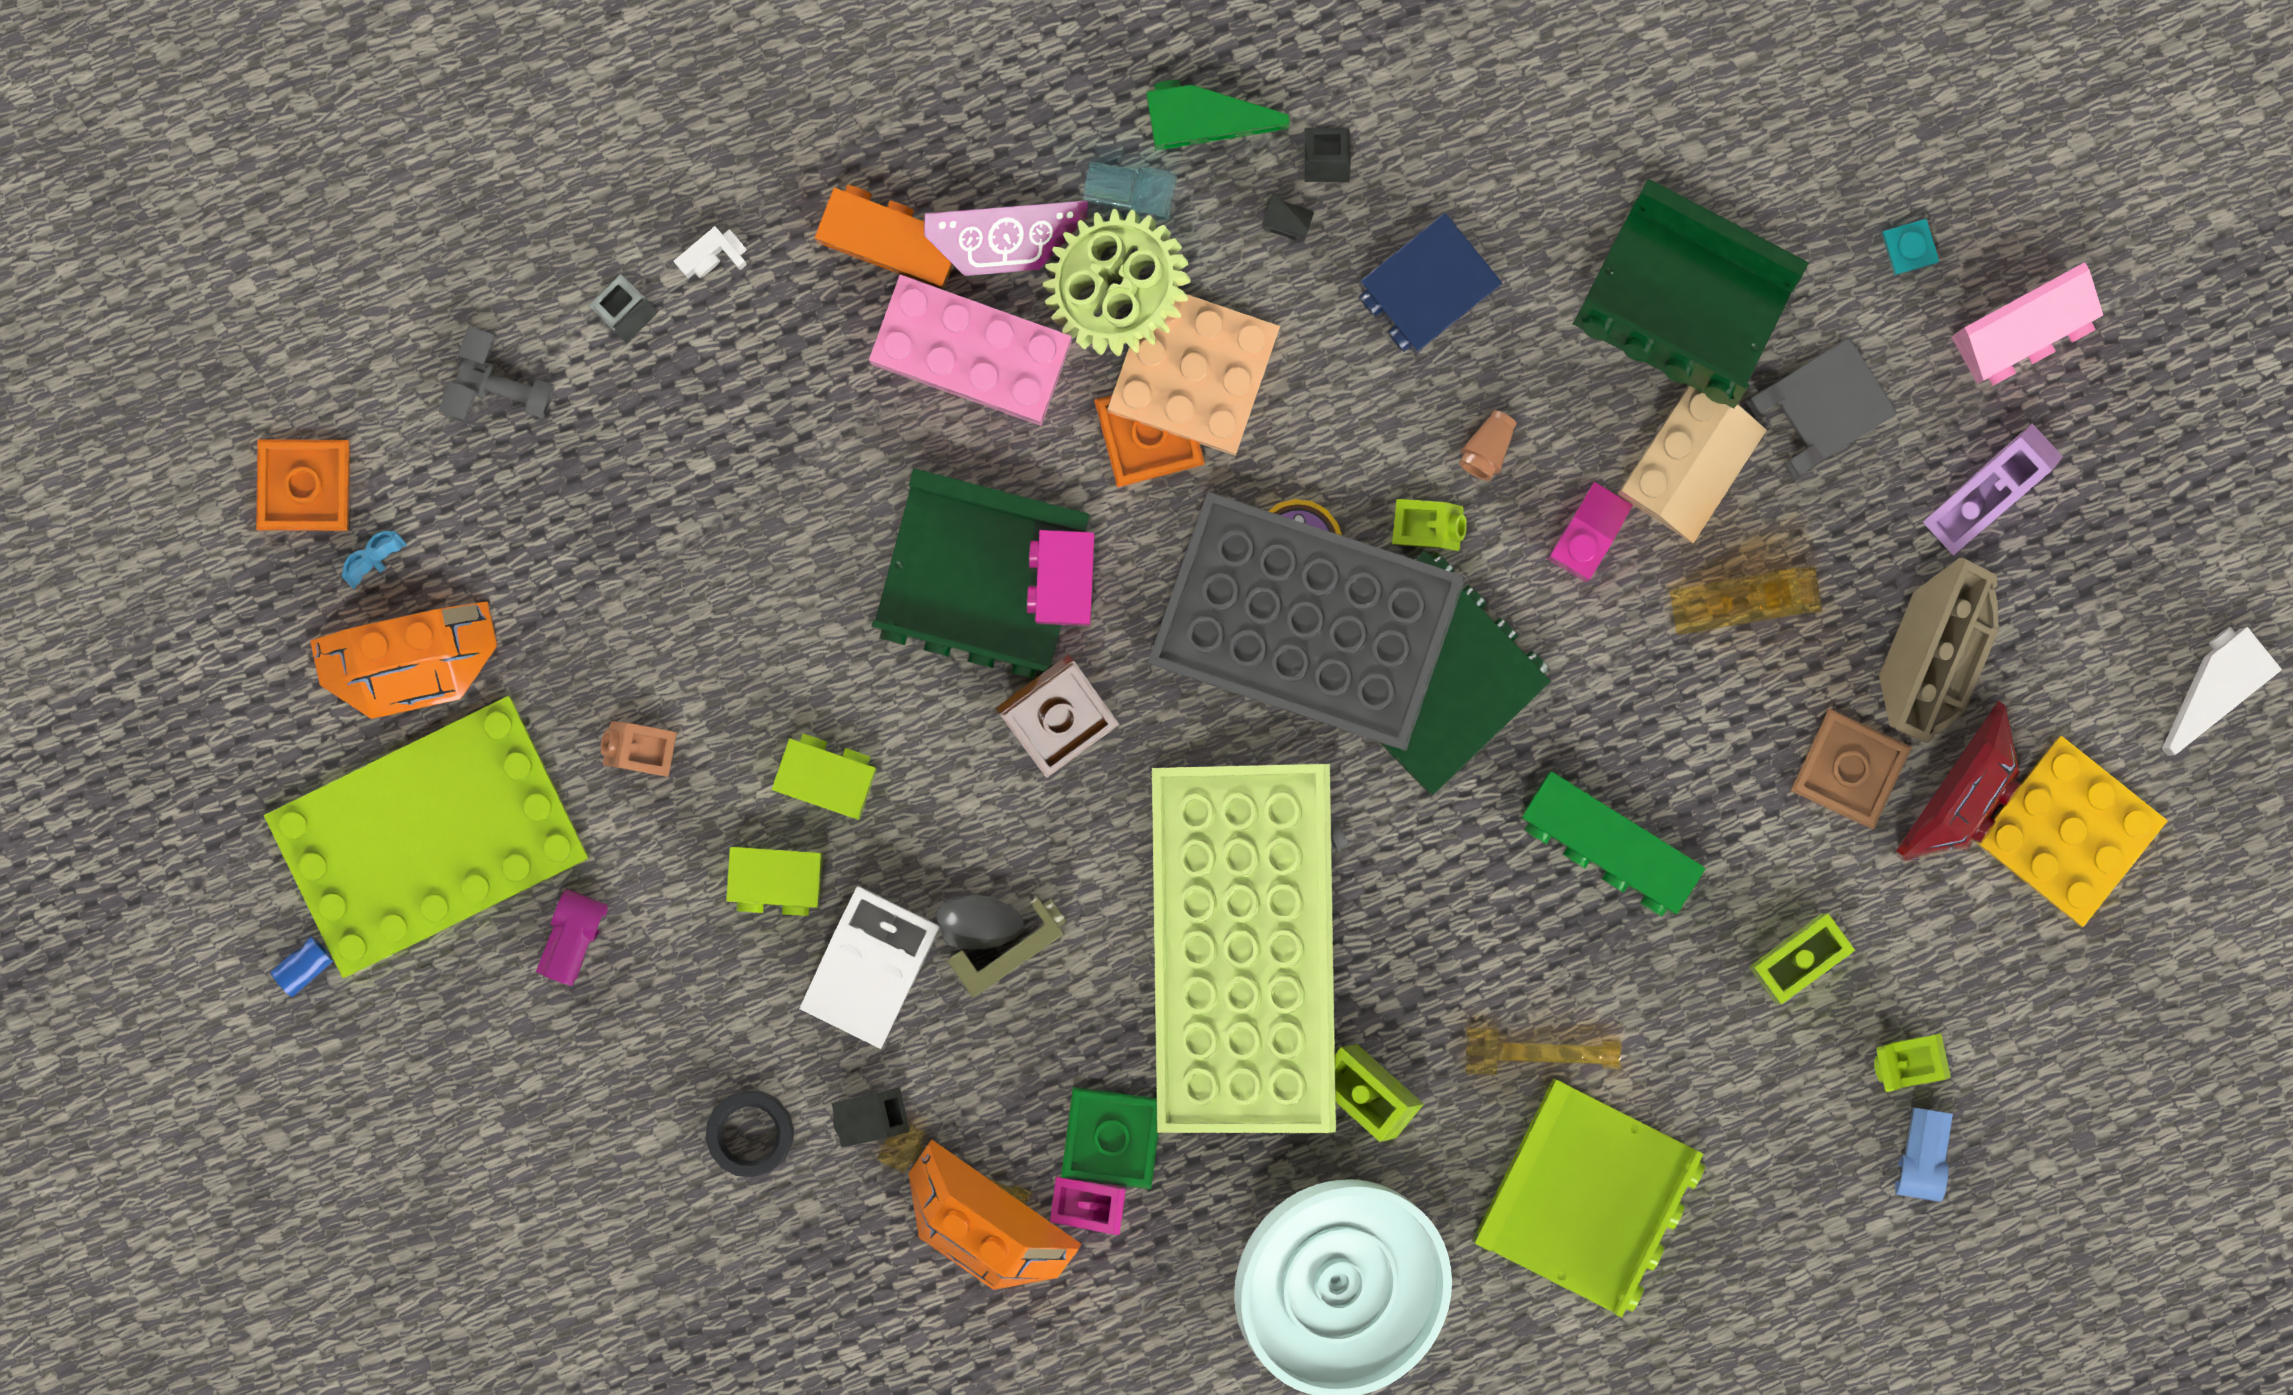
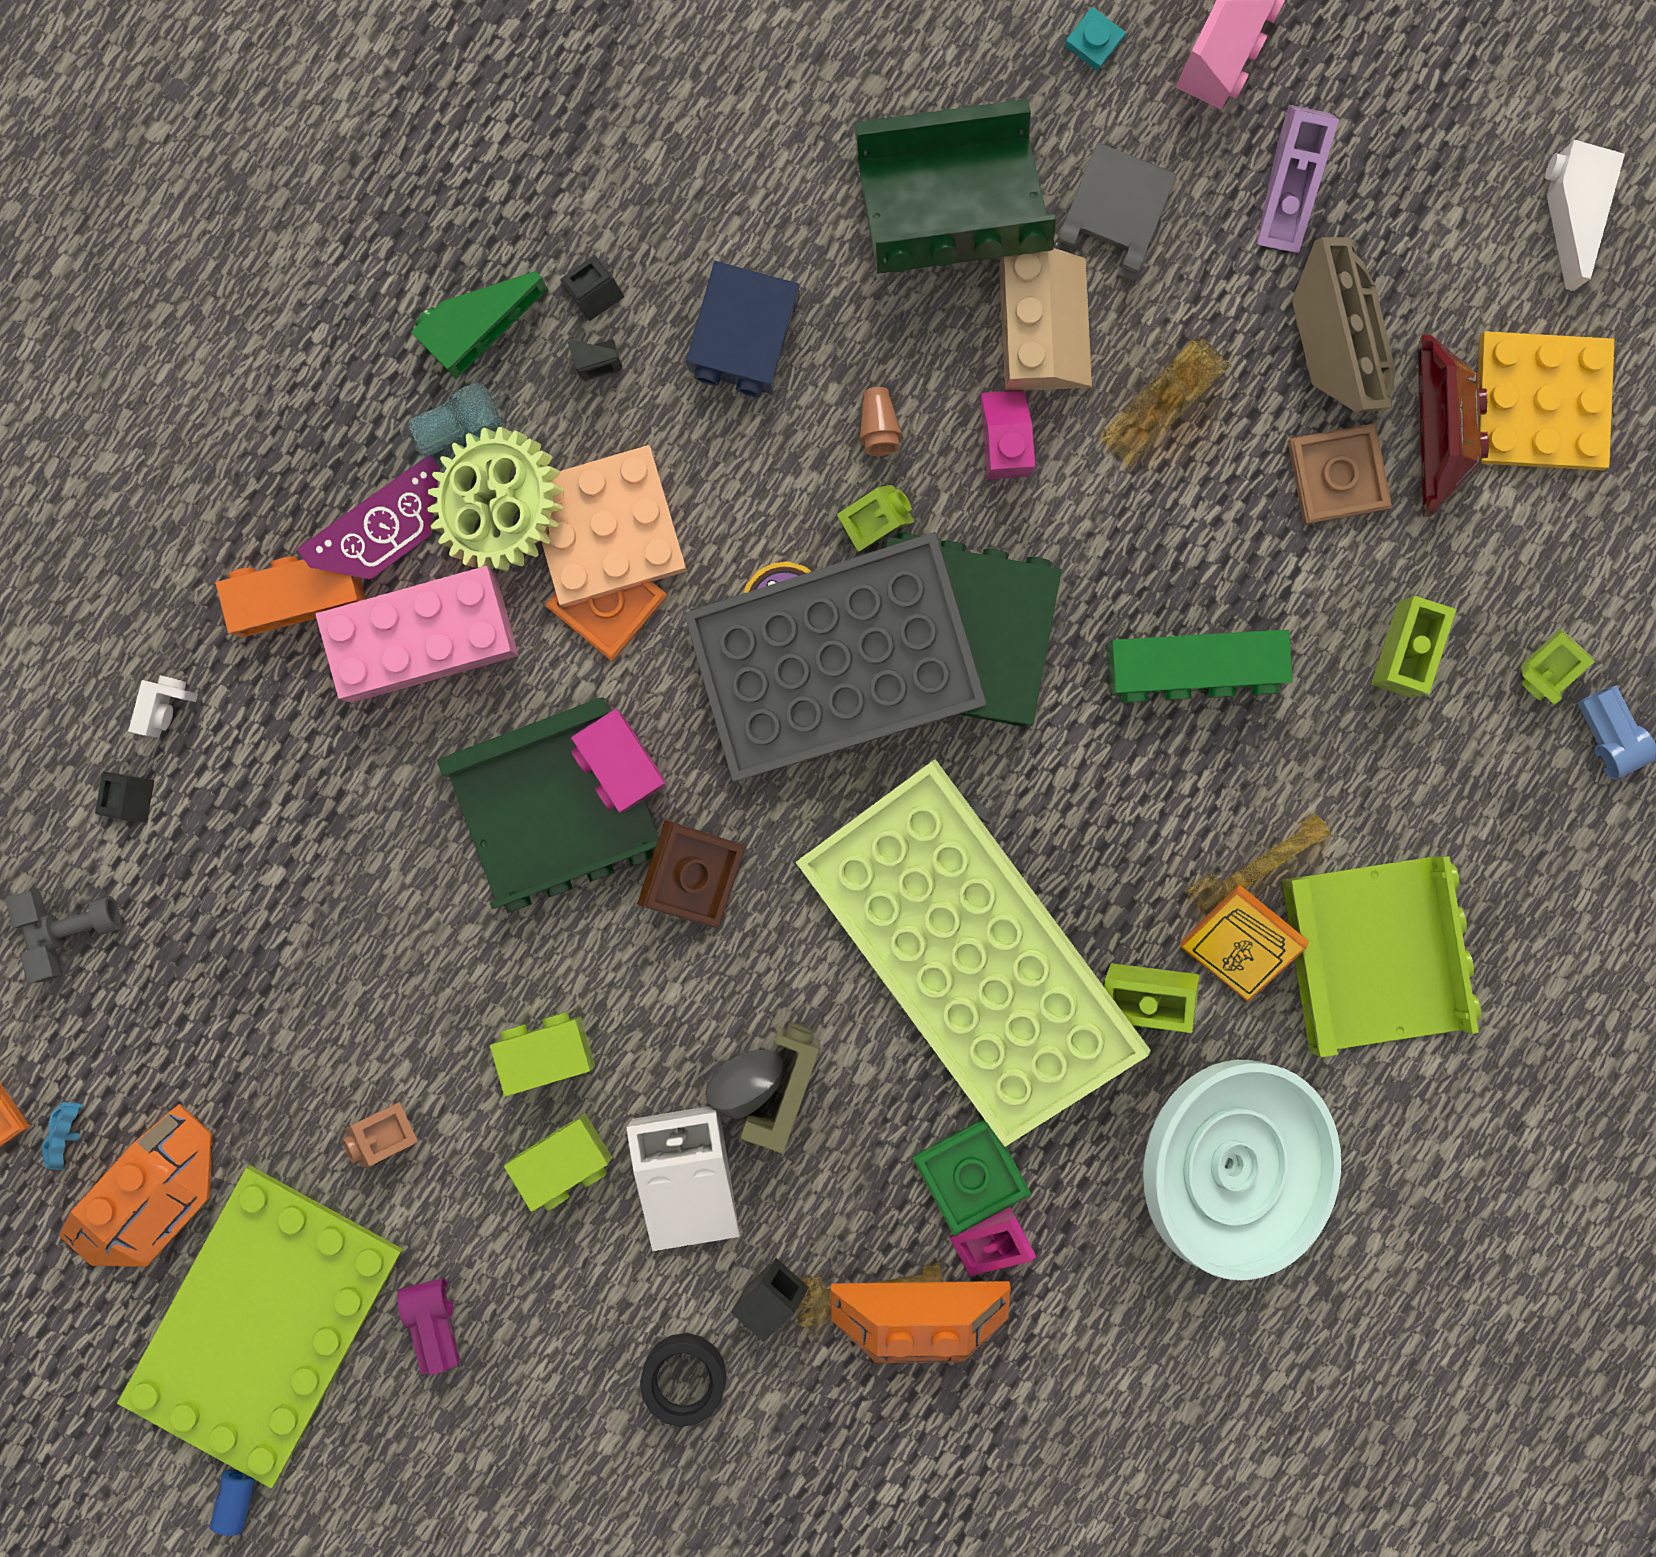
camera: 35 degrees left, 0 degrees up
(1479, 1104) = (1244, 943): none -> yellow tile

